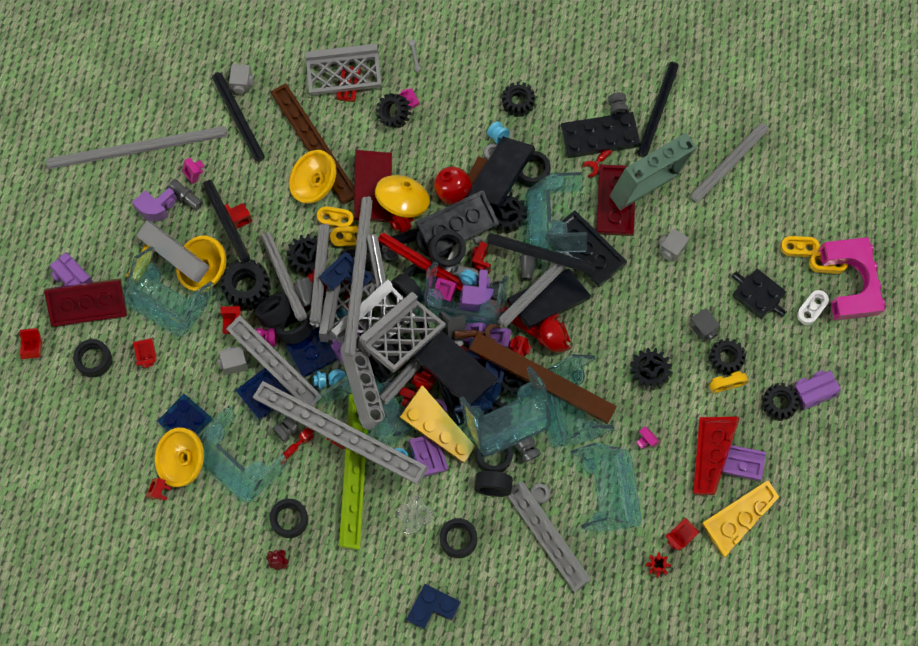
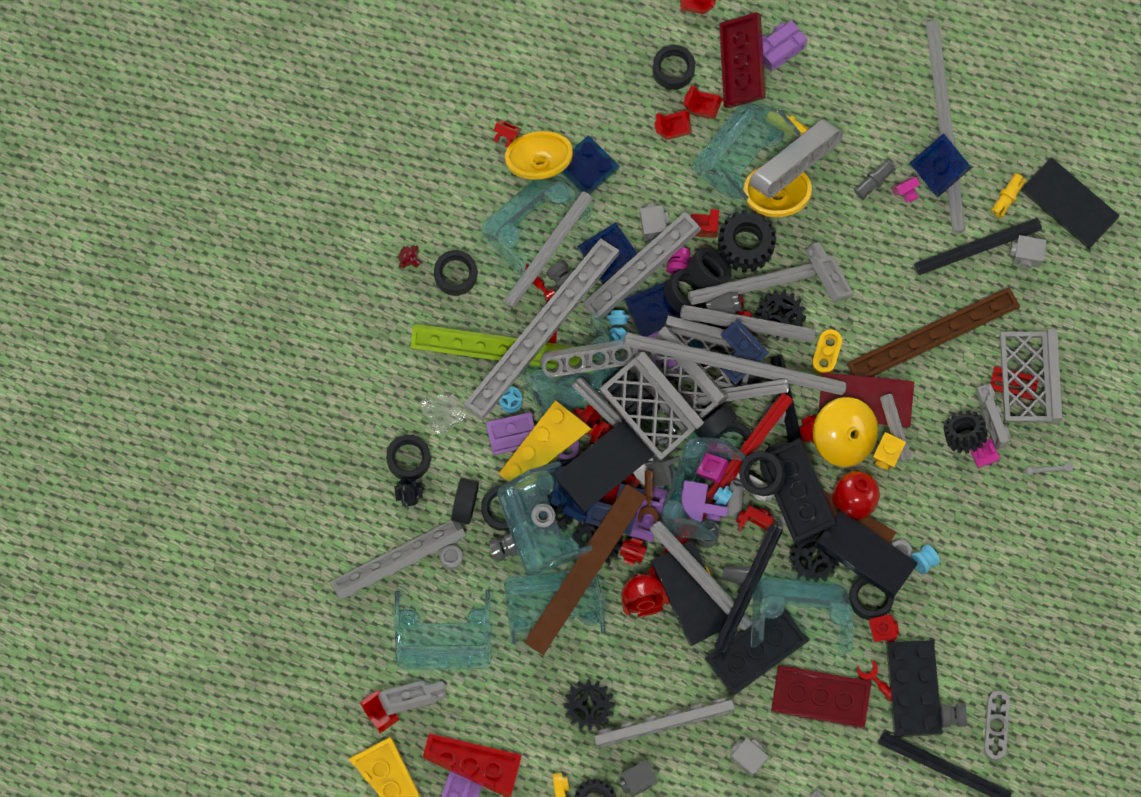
camera: 90 degrees right, 5 degrees up
(125, 331) = (702, 103): none -> red bracket
(154, 209) = (858, 142): medium lavender brick -> none
(172, 144) = (940, 165): none -> clear blue plate
(194, 97) = (1008, 195): none -> yellow pin
(197, 55) = (1070, 203): none -> black tile
(226, 221) = (830, 222): black axle -> none
(239, 215) = (842, 239): red panel -> none
(265, 438) = (548, 249): none -> light grey axle
(268, 222) = (829, 273): none -> light grey hinge
(312, 176) = (881, 327): yellow dish -> none
(349, 237) = (797, 363): yellow plate -> none
(373, 96) = (992, 416): none -> light grey hinge
(394, 161) = (894, 423): none -> light grey axle
(415, 164) = (888, 451): none -> yellow bracket
(431, 601) = (340, 422): dark blue plate -> none
(489, 533) = (408, 492): none -> black gear
(503, 410) = (535, 515): none -> light grey plate
(518, 108) = (972, 604): black tyre -> none
(559, 155) = (884, 629): none -> red bracket
(624, 70) = (1004, 708): none -> light grey beam
(648, 438) = (502, 690): dark pink tile -> none
(652, 171) = (839, 734): sand green window -> none
(657, 571) = (349, 672): red gear -> none
(659, 317) = (654, 725): none -> light grey plate
(666, 509) = (411, 696): none -> light grey hinge

